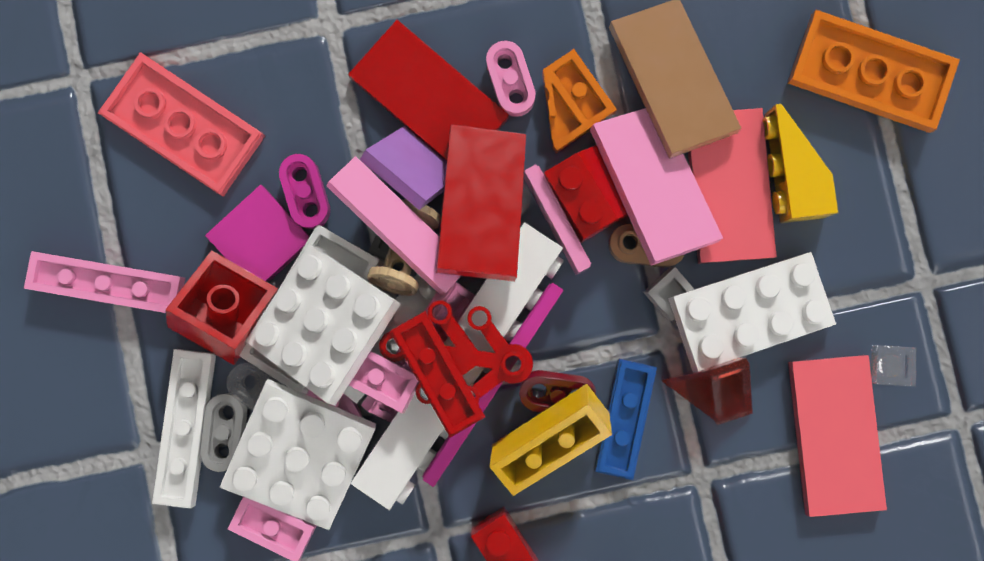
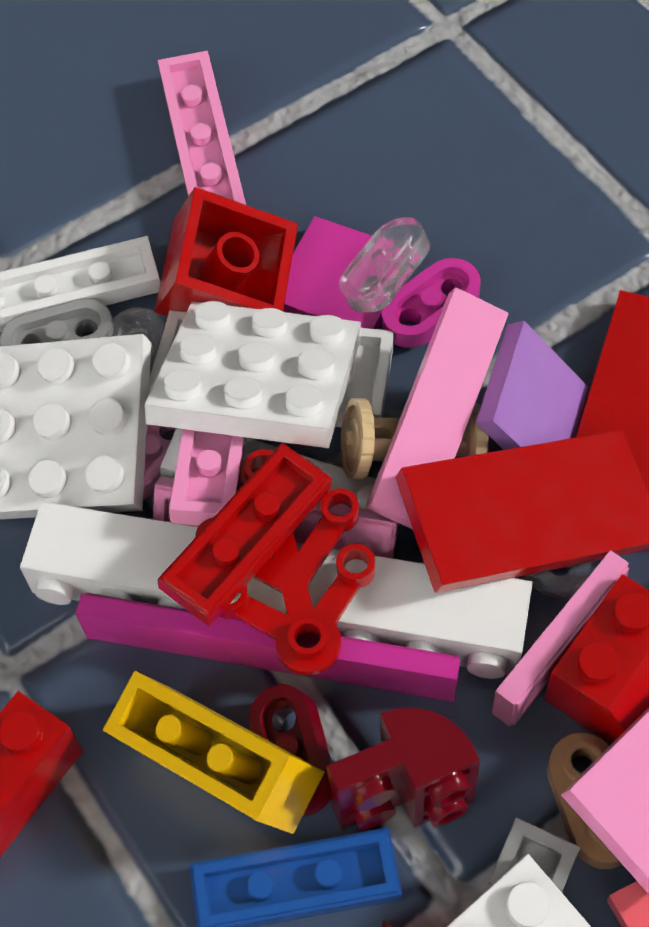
camera: 65 degrees right, 25 degrees down
(181, 124) = (447, 144): coral tile -> none
(270, 211) = (384, 265): none -> clear plate
(602, 331) = (418, 764): none -> dark red brick

